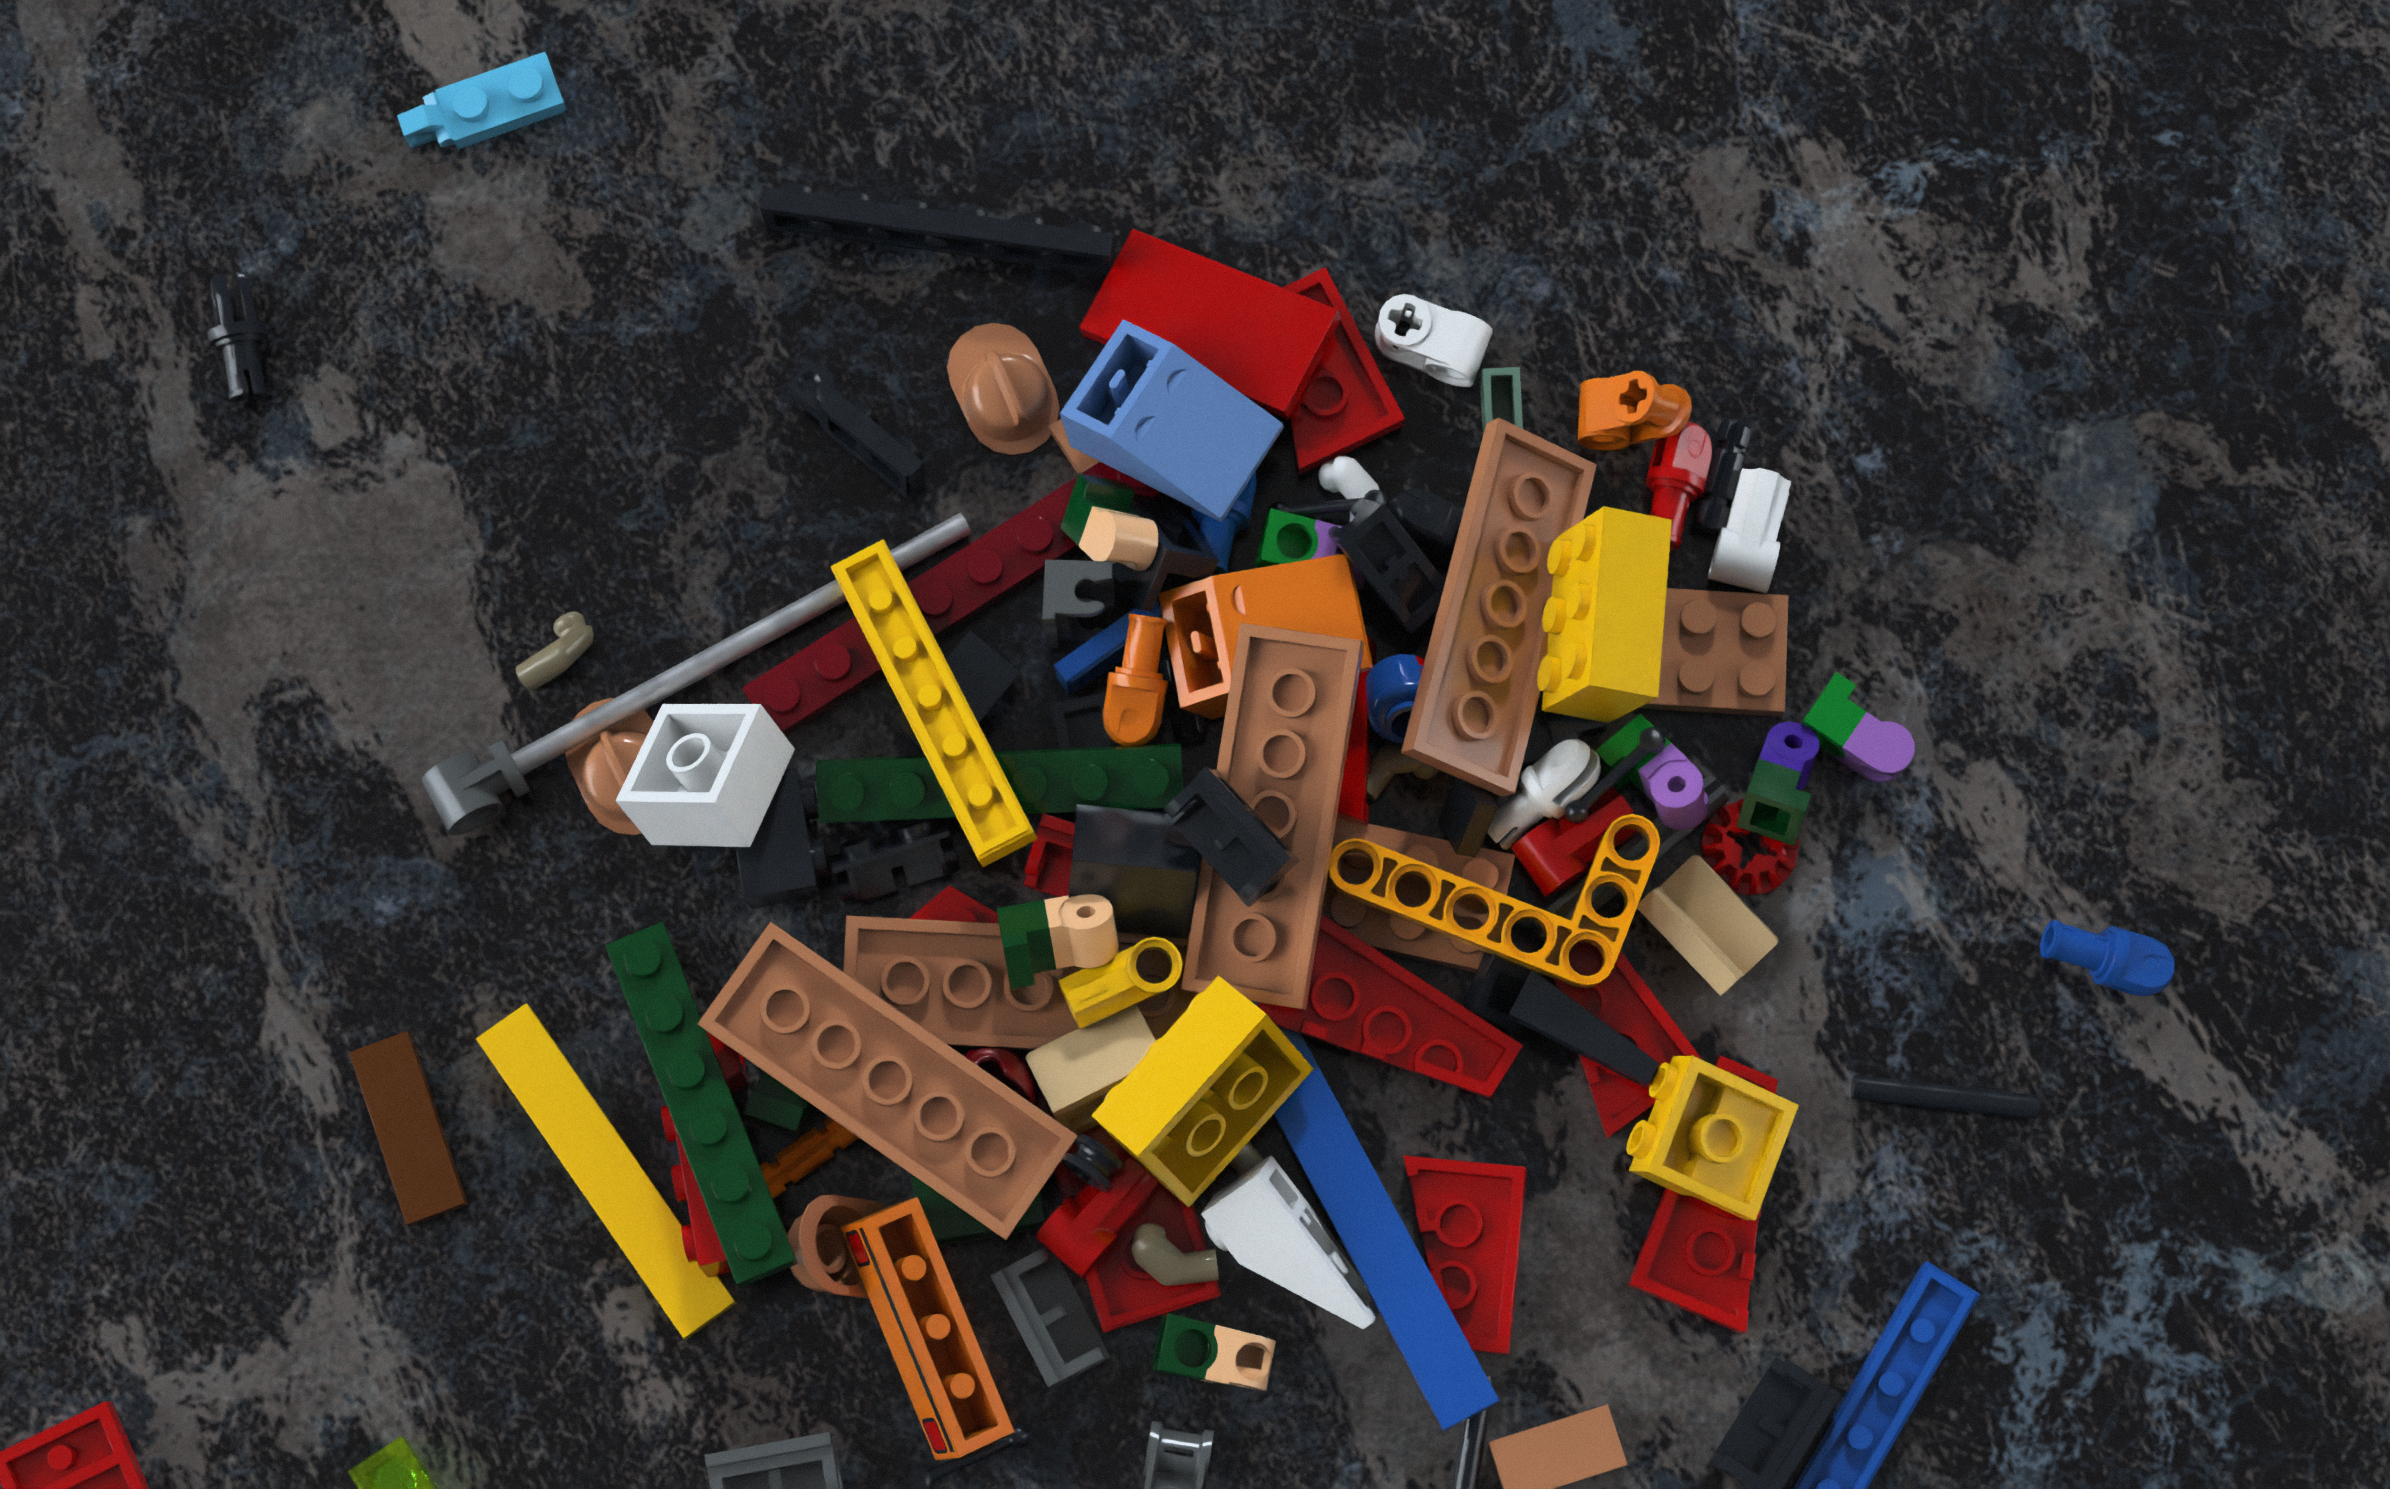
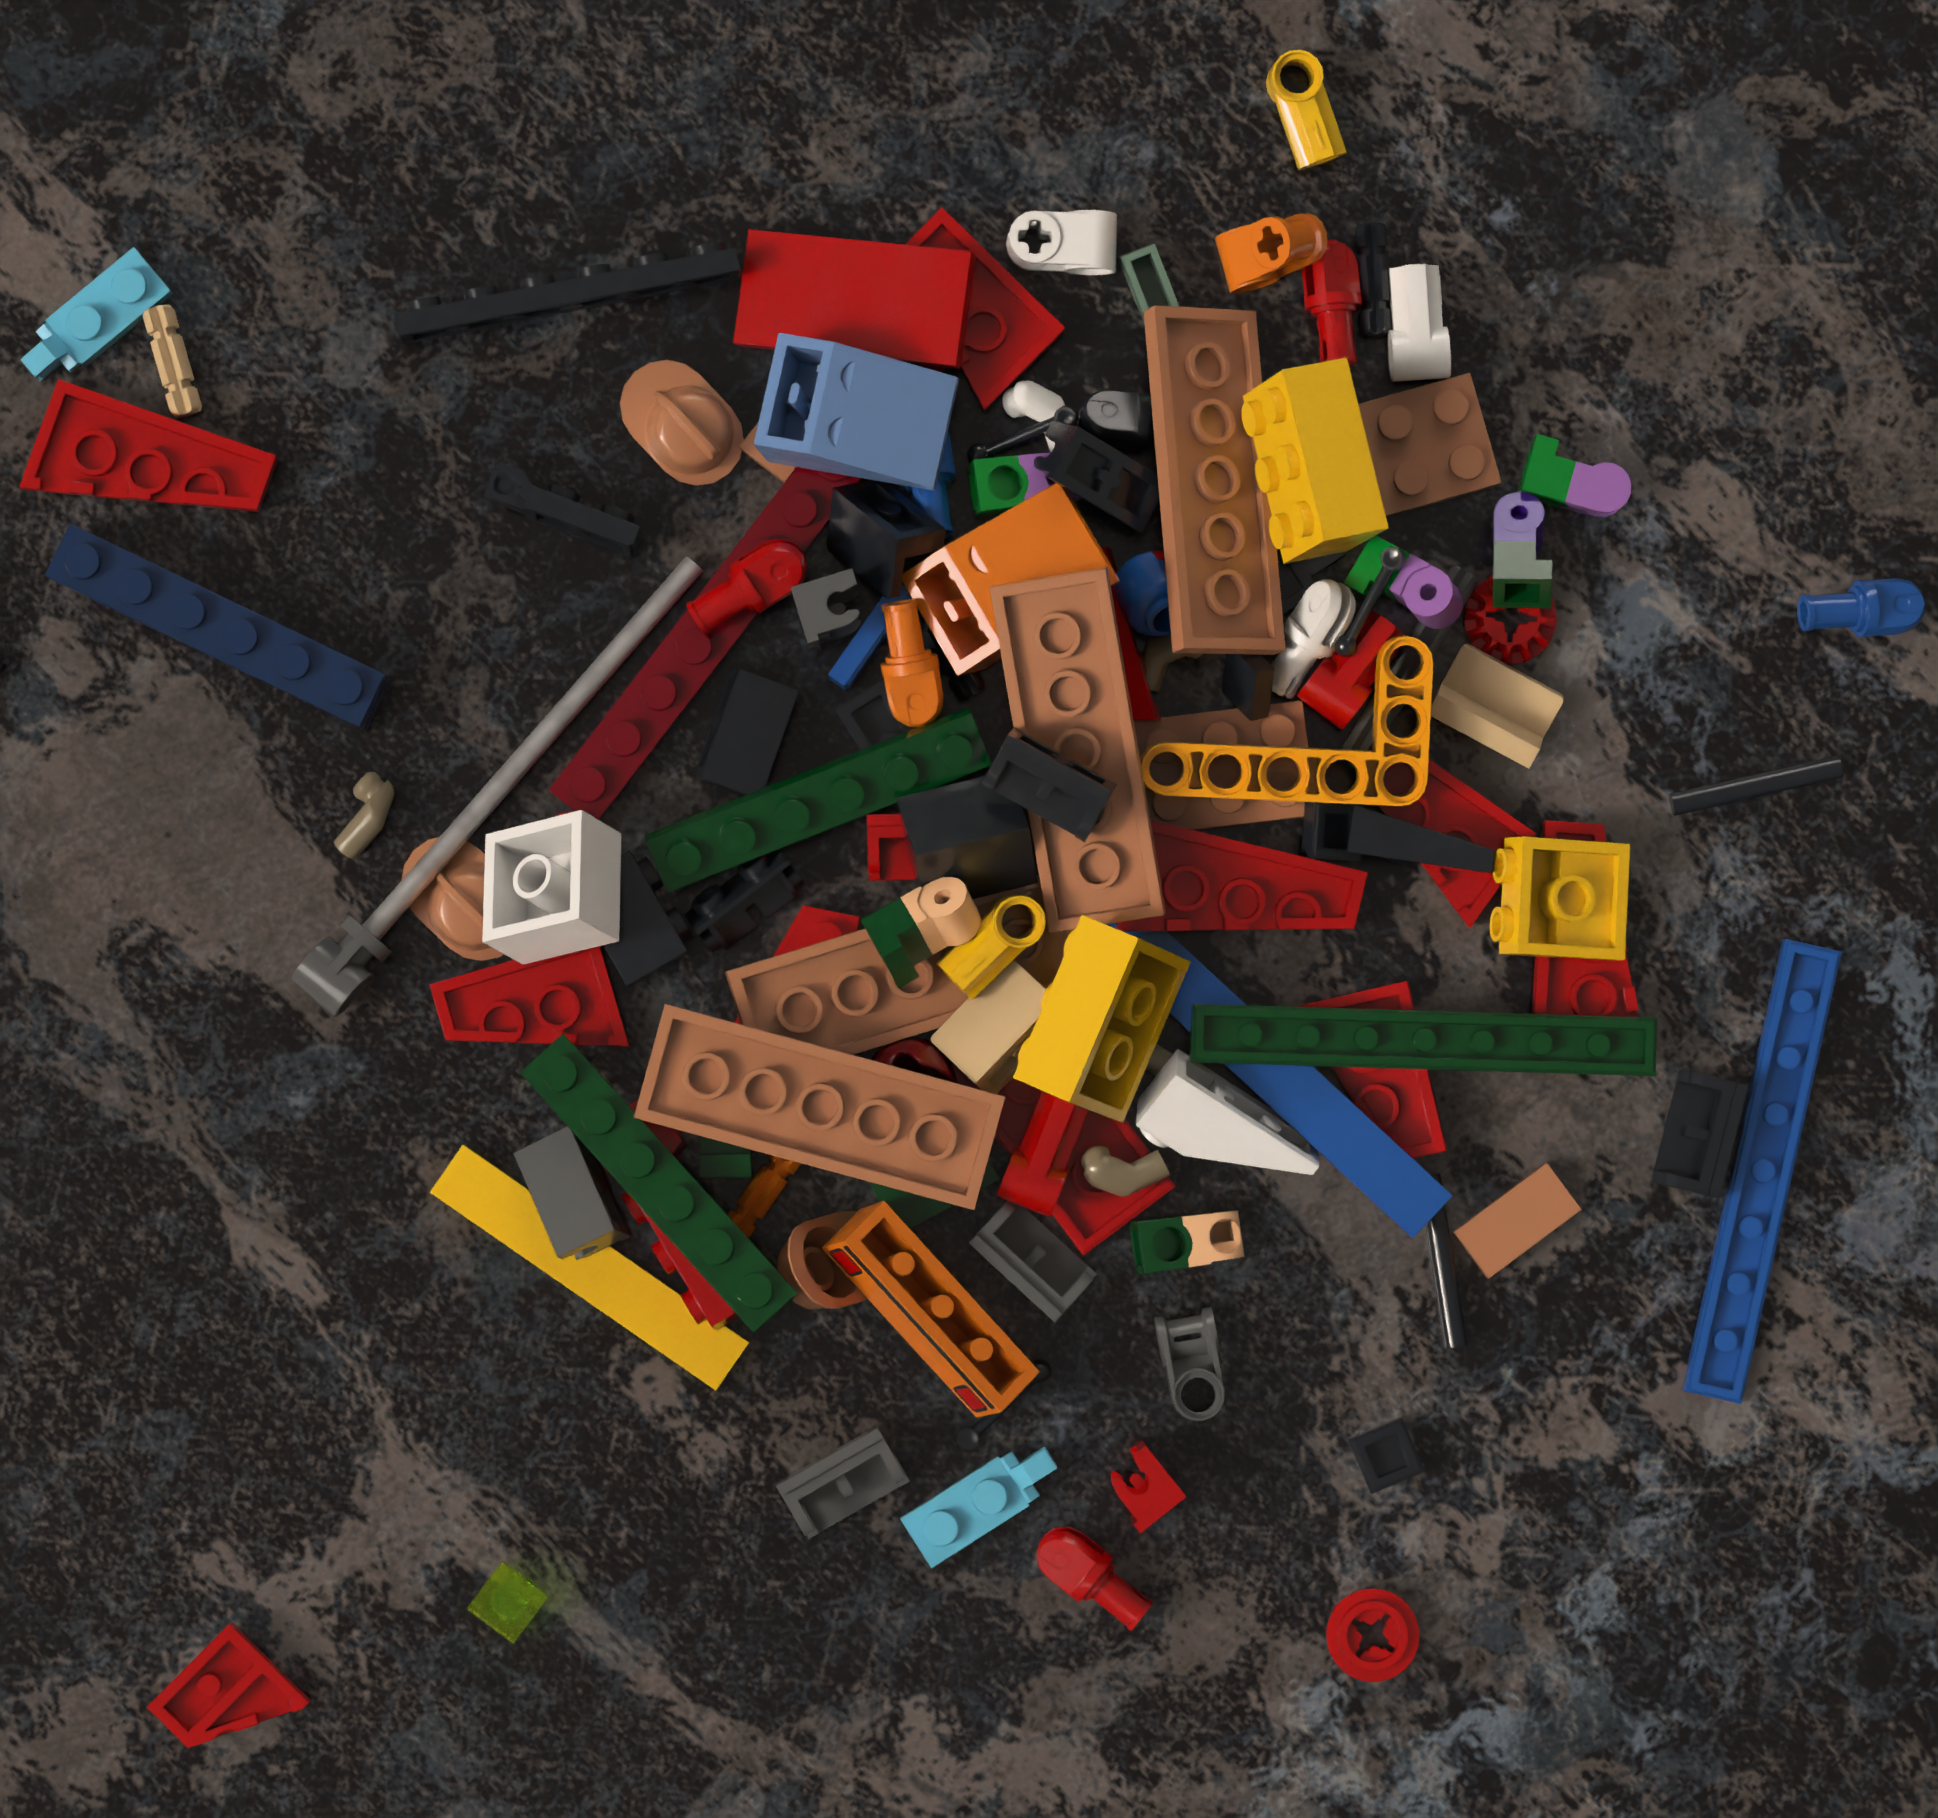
camera: 25 degrees left, 10 degrees up
(408, 1128) = (399, 1292): reddish brown tile -> none
(468, 238) = (129, 453): none -> red wing
(484, 424) = (218, 627): none -> dark blue brick
(540, 168) = (172, 361): none -> tan axle
(612, 1090) = (571, 1195): none -> dark grey hinge
(649, 885) = (533, 1002): none -> red wing
(934, 704) = (732, 749): yellow tile -> none
(1014, 552) = (753, 582): none -> red arm
(1093, 1163) = (1027, 1116): black bush -> none
(1107, 526) = (832, 529): leg -> none
(1524, 1232) = (1423, 1040): none -> dark green tile
(1709, 297) = (1306, 115): none -> yellow piece

